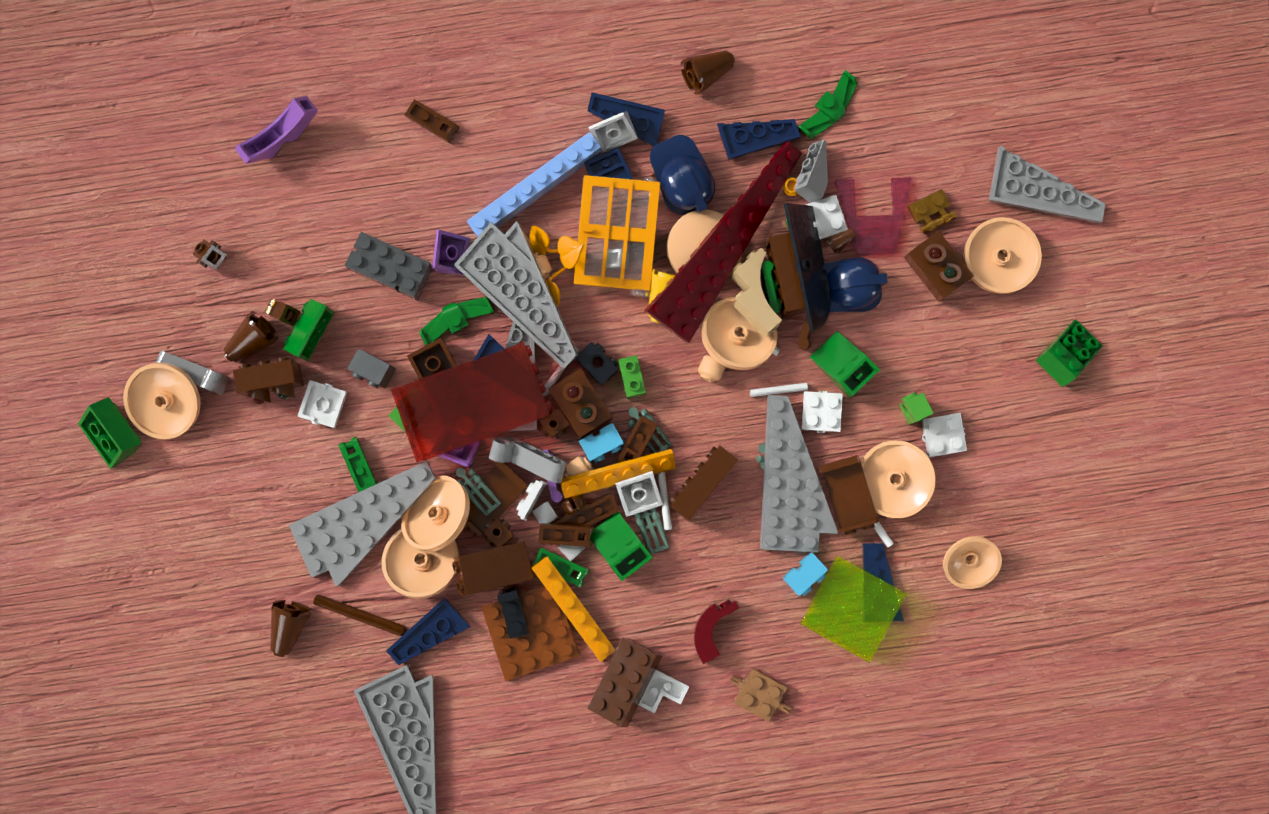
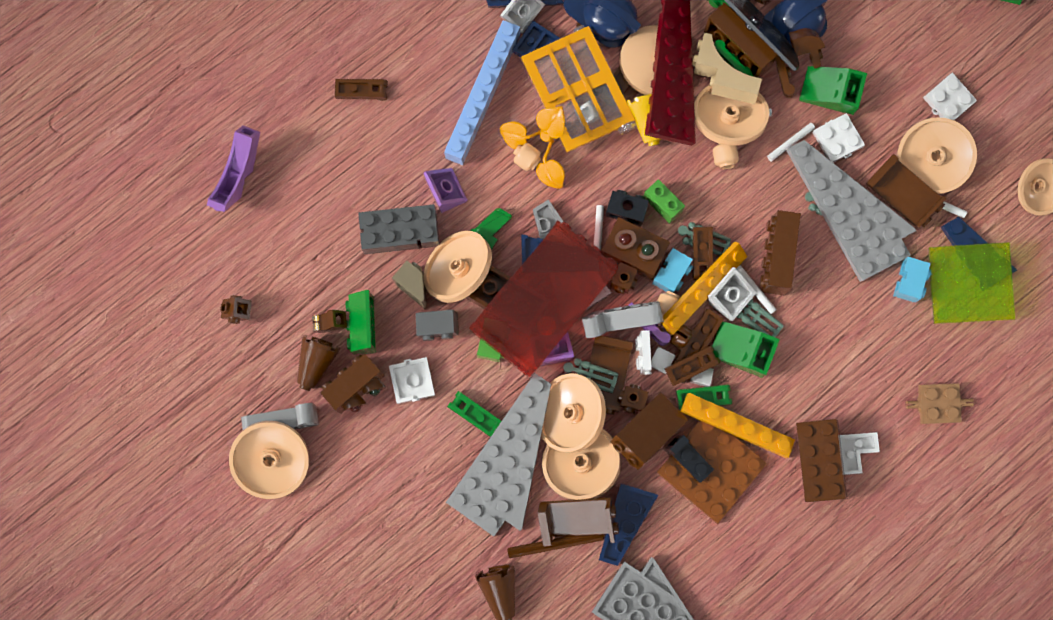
camera: 30 degrees left, 5 degrees down
(109, 432) = (237, 516): green slope -> none
(371, 321) = (411, 281): none -> dark tan slope
(385, 604) = (577, 518): none -> panel
(416, 329) = (457, 266): none -> light nougat dish
(513, 281) = (515, 178): light grey wing -> none
(704, 626) = (858, 376): dark red arch -> none
(844, 309) = (807, 41): none -> reddish brown brick
(915, 407) = (914, 88): bright green brick -> none

